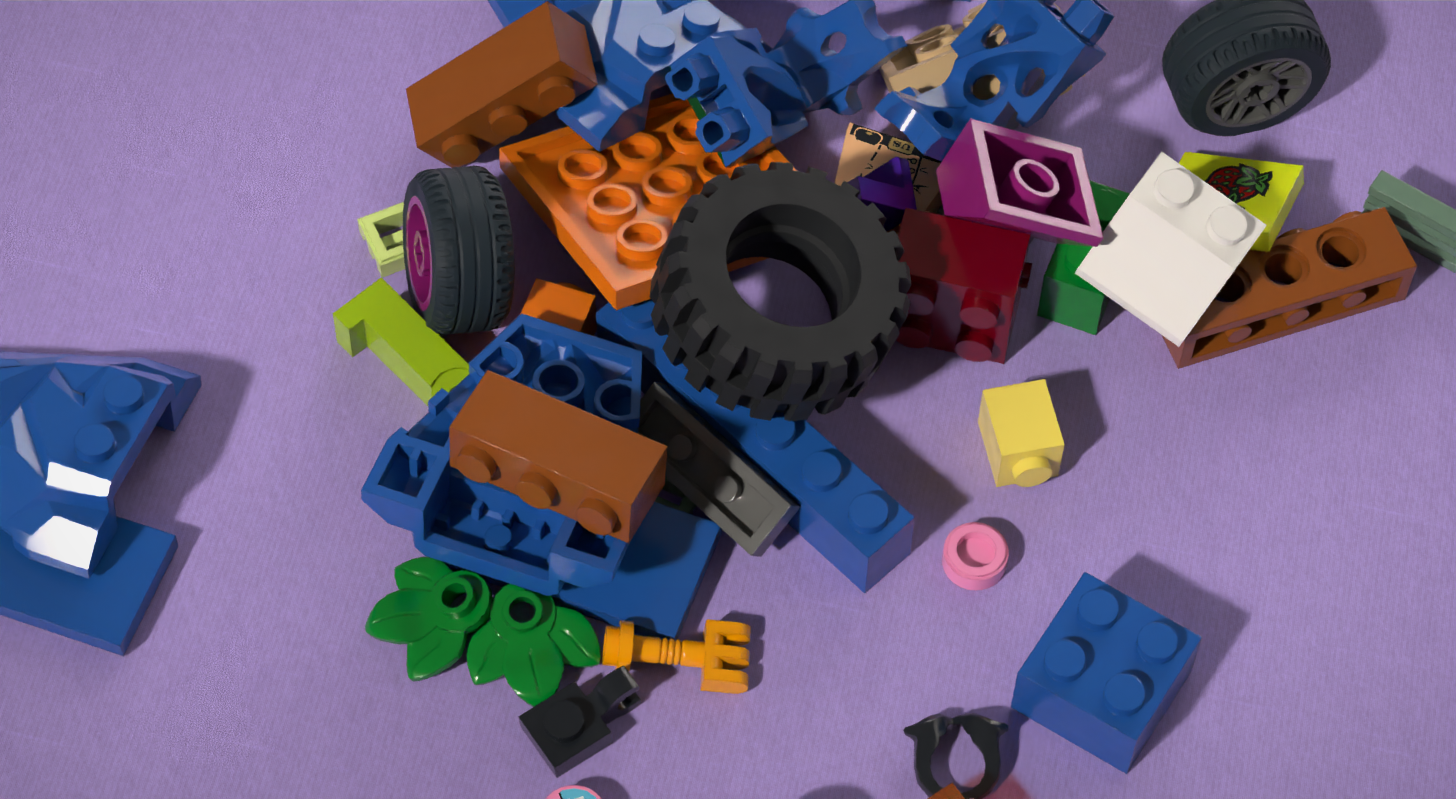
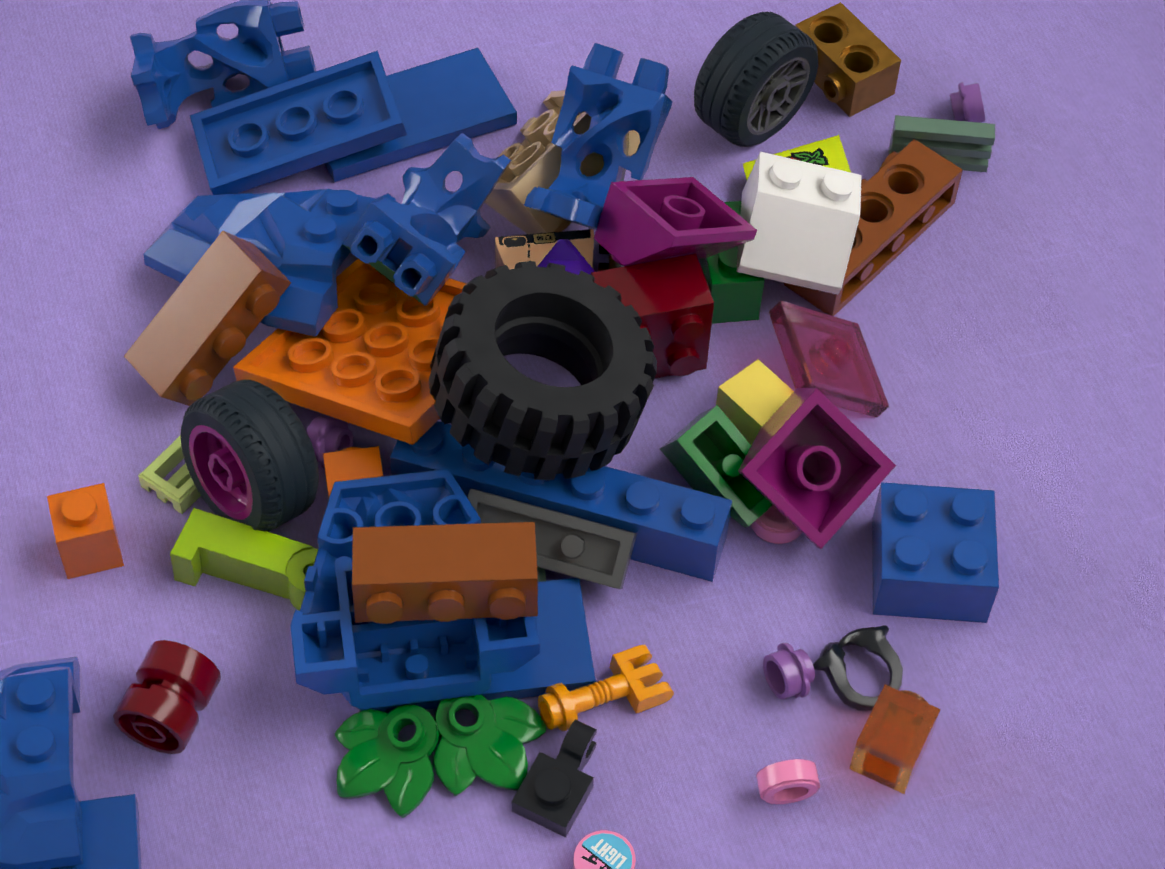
camera: 30 degrees left, 5 degrees down
(260, 450) = (170, 690): none -> dark red wheel
(272, 253) = (85, 531): none -> orange brick
(555, 264) = (328, 436): none -> medium lavender plate
(876, 723) = (788, 672): none -> medium lavender plate
(939, 481) = (709, 460): none -> green slope
(1022, 521) = (814, 464): none -> magenta slope
(1127, 413) = (828, 356): none -> clear pink plate
(1378, 80) = (852, 60): none -> pearl gold brick

